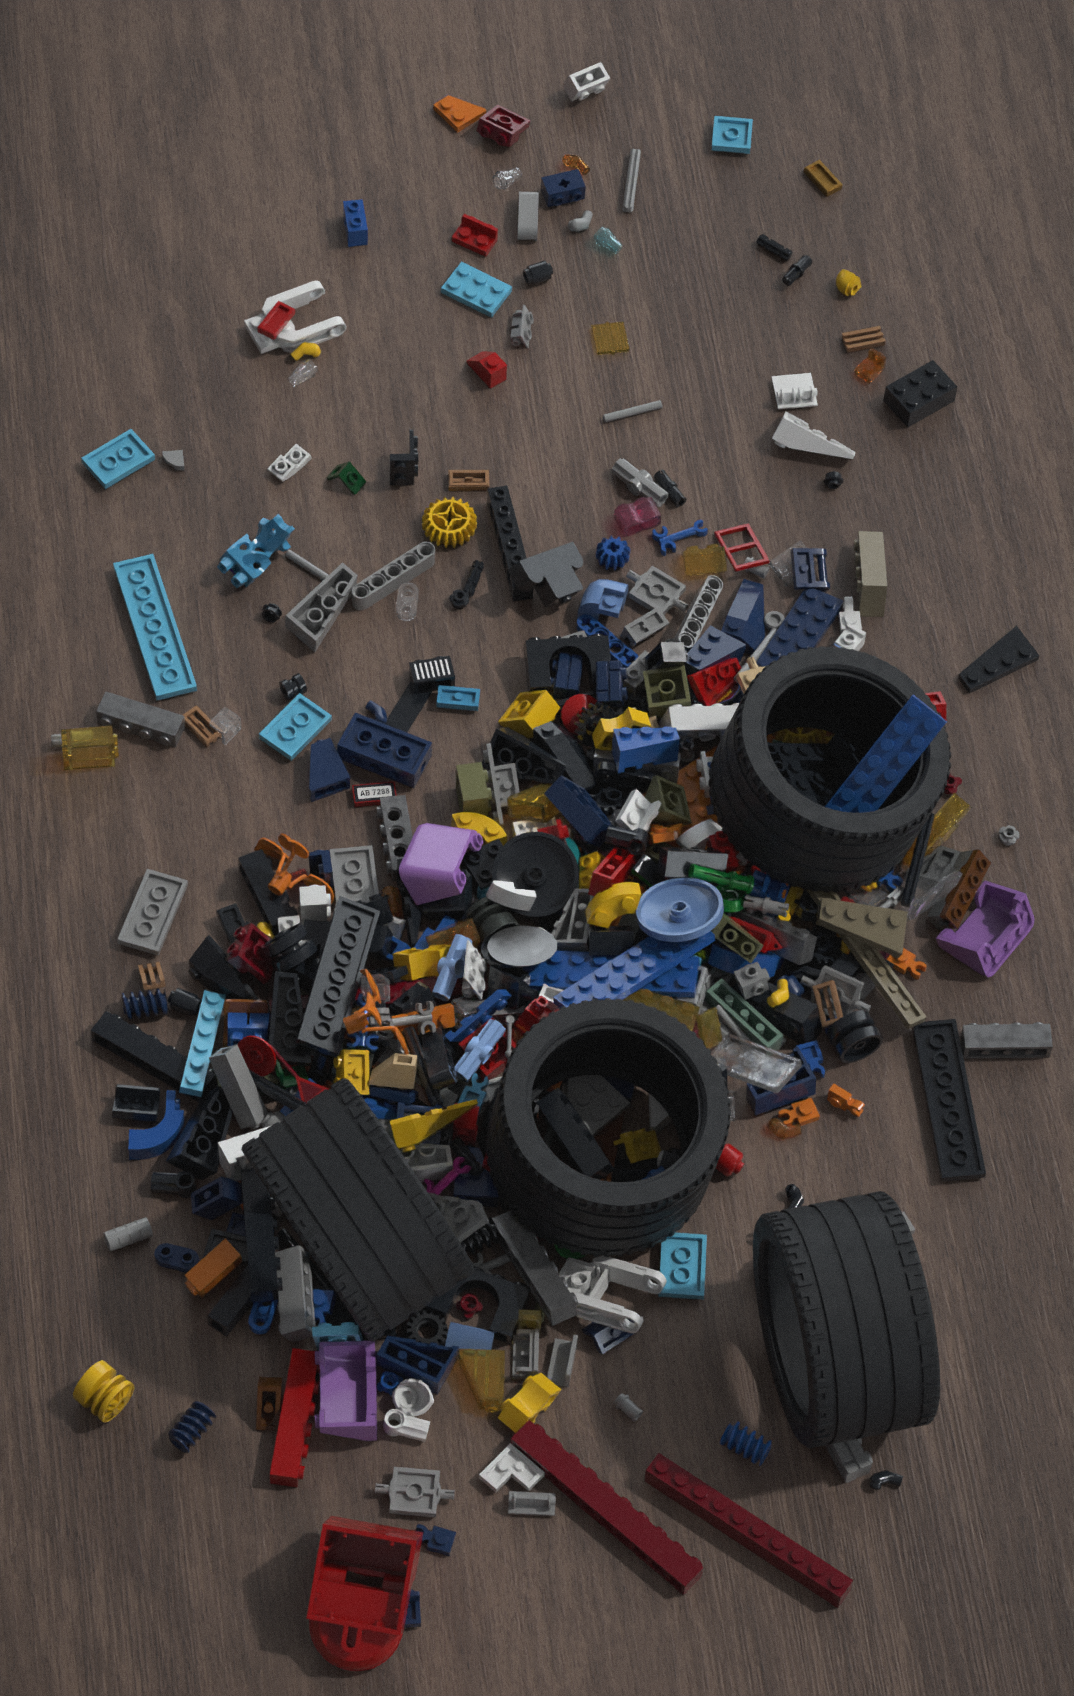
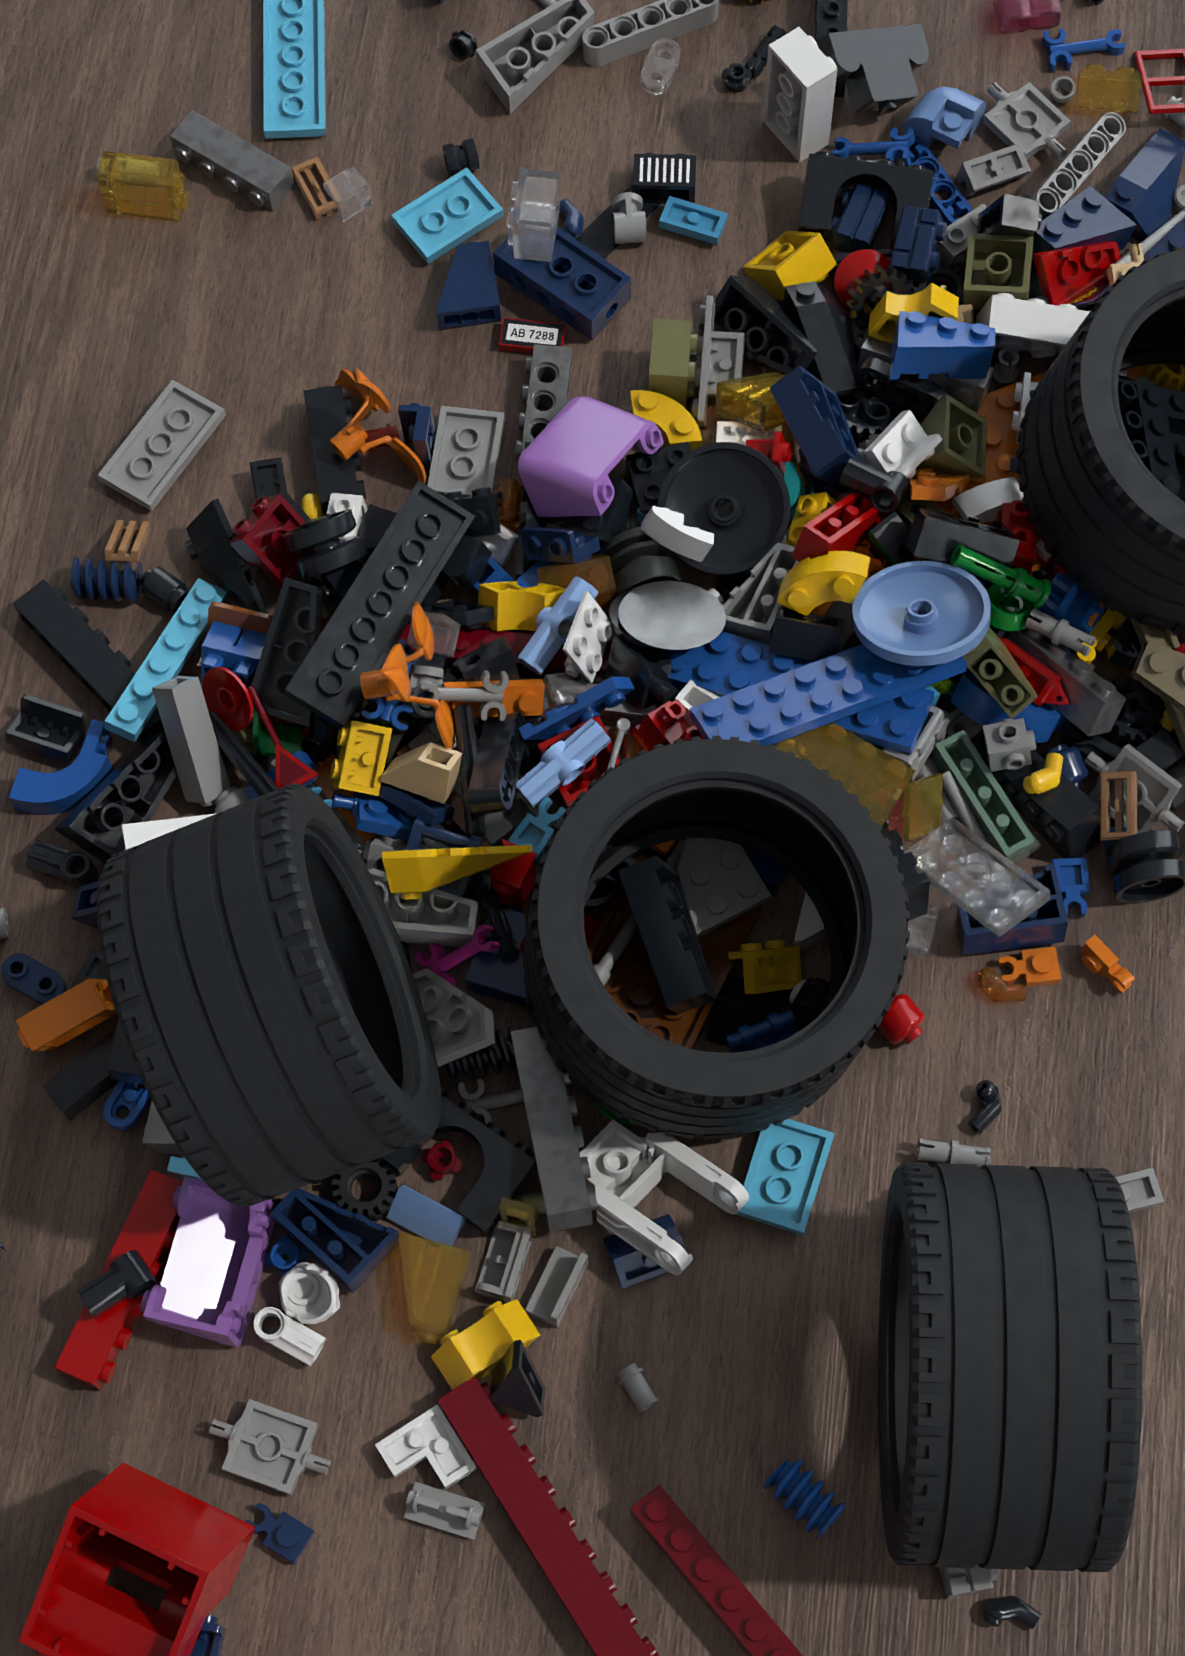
camera: 20 degrees right, 10 degrees up
(268, 1403) = (92, 1242): reddish brown slope -> none
(299, 1411) = (125, 1279): none -> black piece
(314, 903) = (388, 481): white brick -> none
(361, 714) = (534, 214): none -> clear brick
(416, 707) = (628, 219): none -> light grey piece
(435, 919) = (557, 545): none -> dark blue bracket
(509, 603) = (799, 93): none -> white brick
(554, 1417) = (517, 1382): none -> black slope
(579, 625) = (893, 149): none -> blue bar
(612, 552) = (976, 52): blue gear -> none
(677, 563) = (1067, 86): none -> light grey hinge

